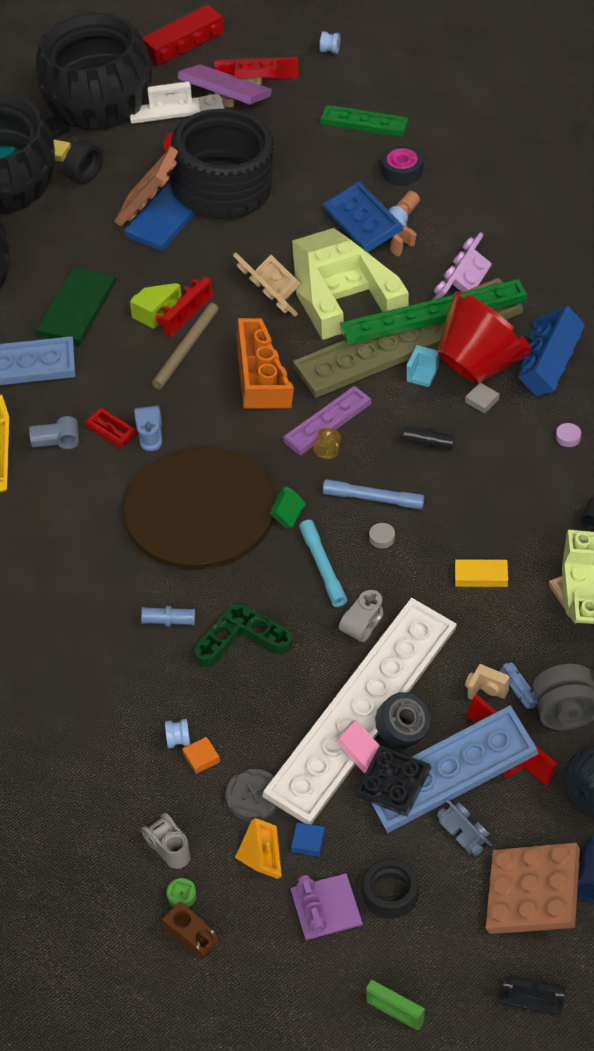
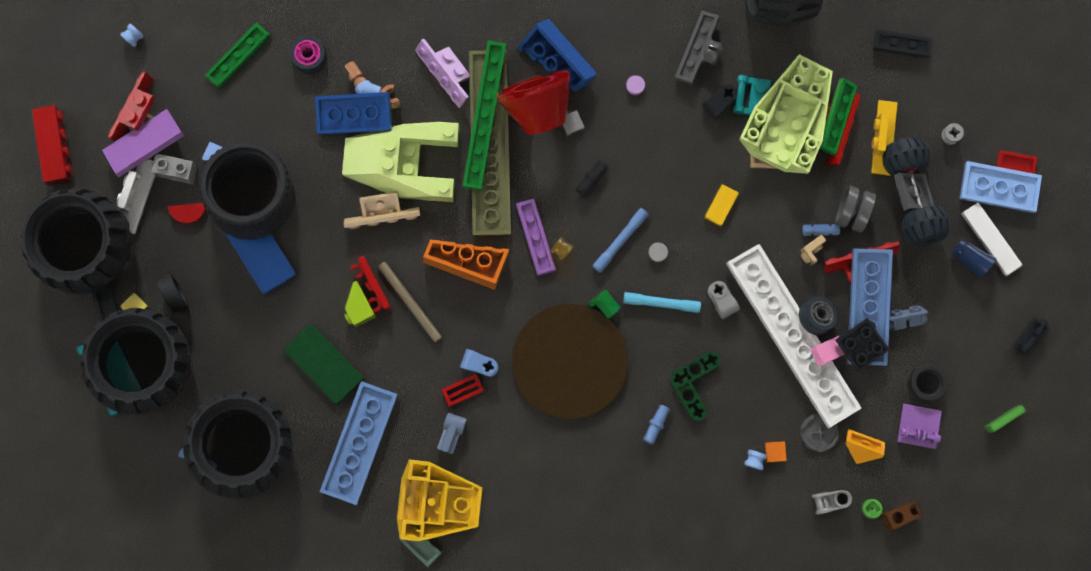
camera: 70 degrees left, 30 degrees up
(147, 187) = (244, 260): nougat plate -> none
(308, 839) = (868, 414): blue tile -> none
(422, 366) = (524, 148): medium azure panel -> none
(533, 888) = (971, 301): nougat plate -> none

